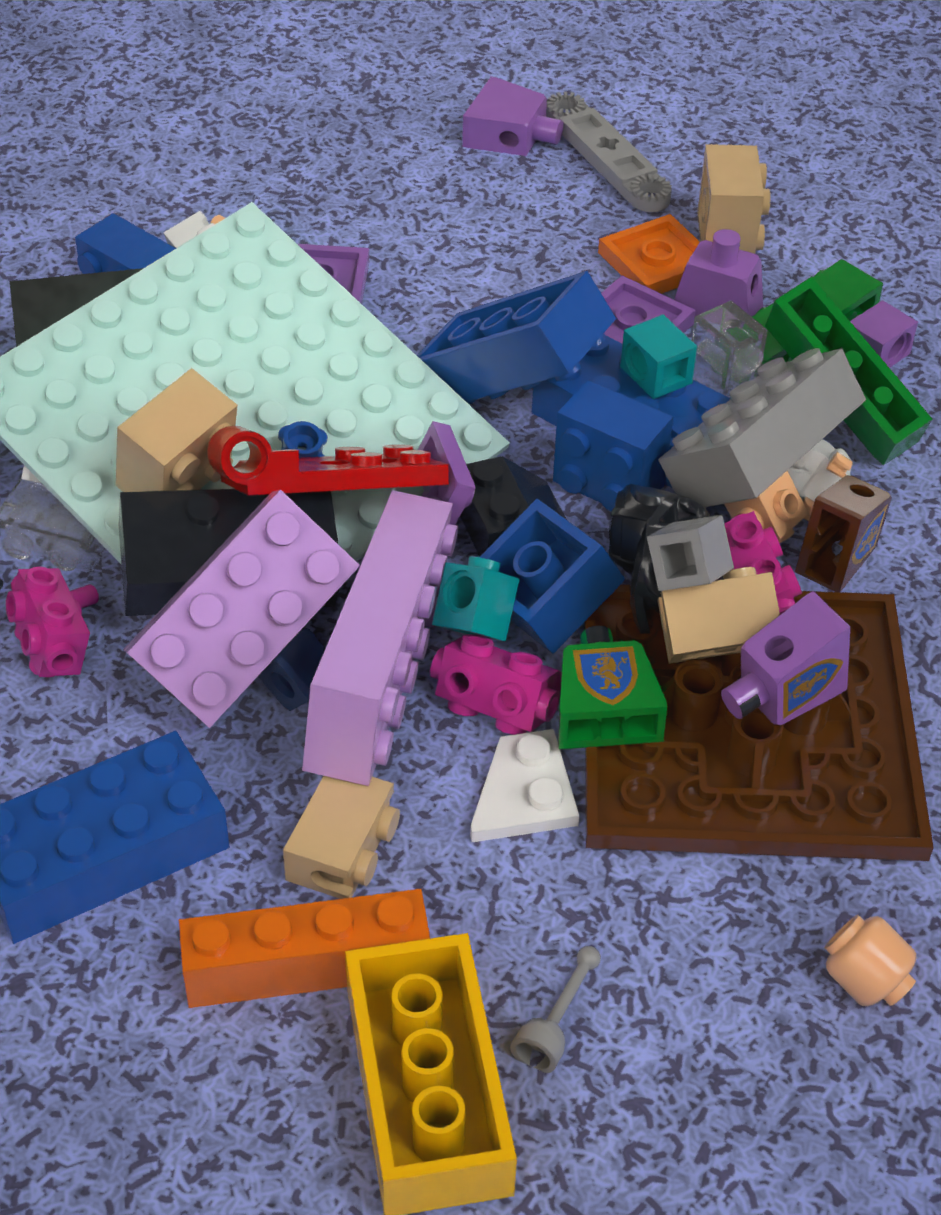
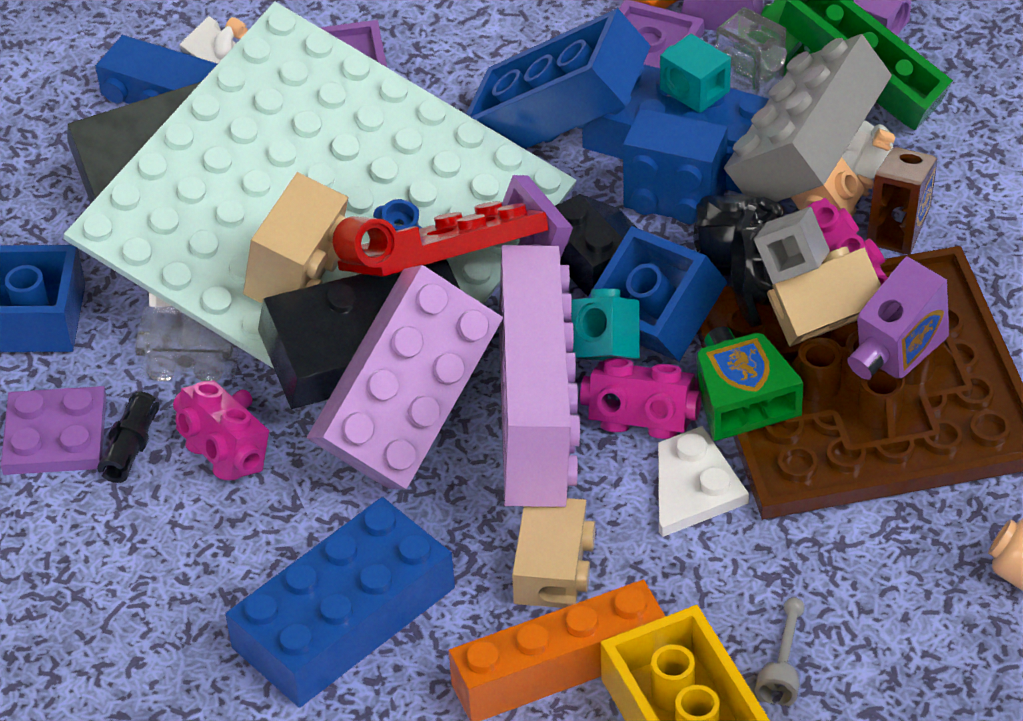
camera: 10 degrees left, 0 degrees up
(294, 669) = (463, 428): dark blue bracket -> none

